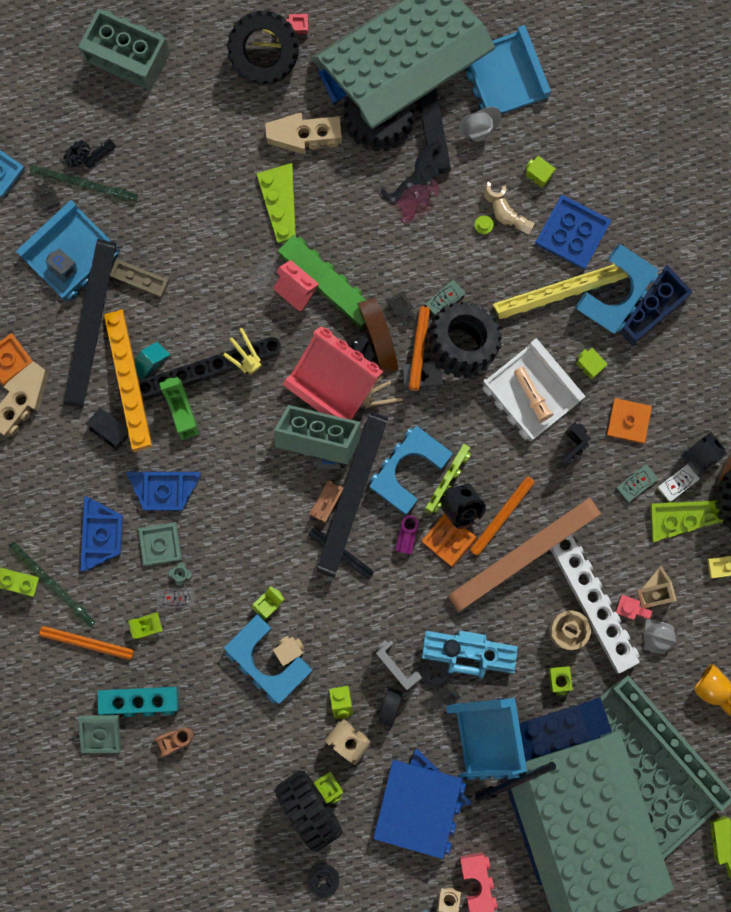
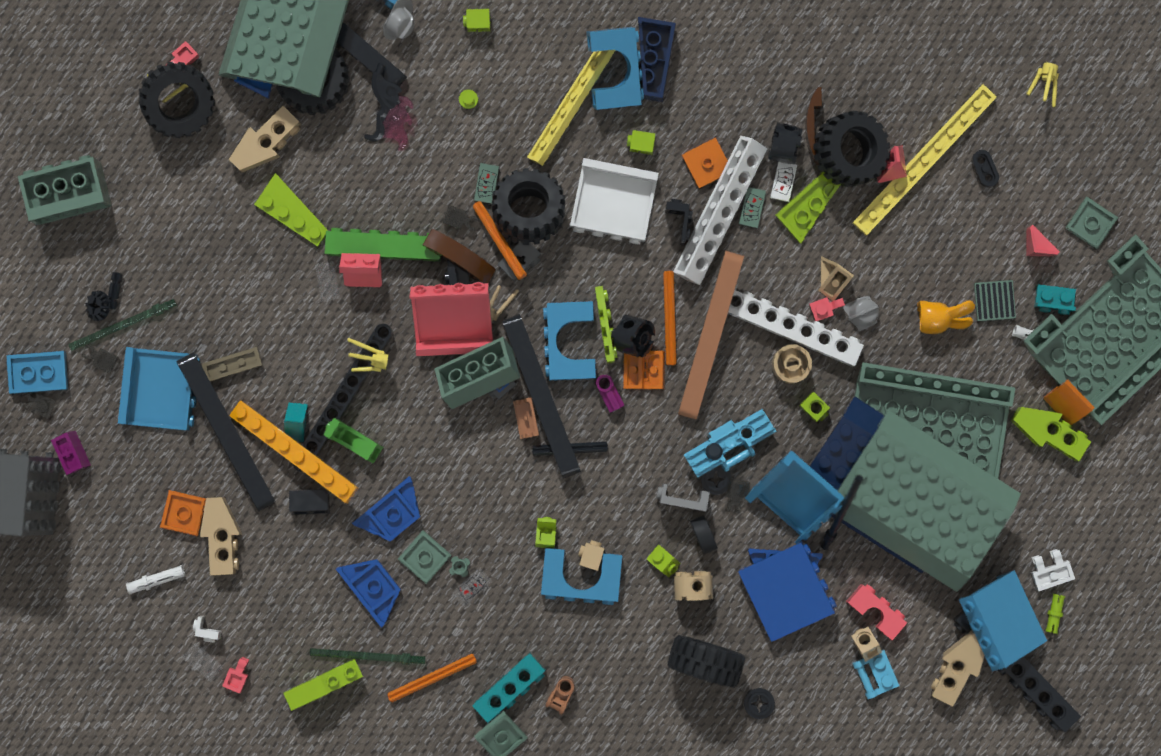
camera: 40 degrees left, 5 degrees up
(61, 265) = (162, 405): dark grey brick -> none
(145, 626) = (466, 627): lime bracket -> none
(329, 788) = (707, 632): lime bracket -> none
(503, 212) = (475, 76): tan piece -> none
(537, 403) = (596, 196): light nougat pin -> none
(573, 232) = (543, 48): blue plate -> none
(610, 464) = (720, 210): none -> white brick

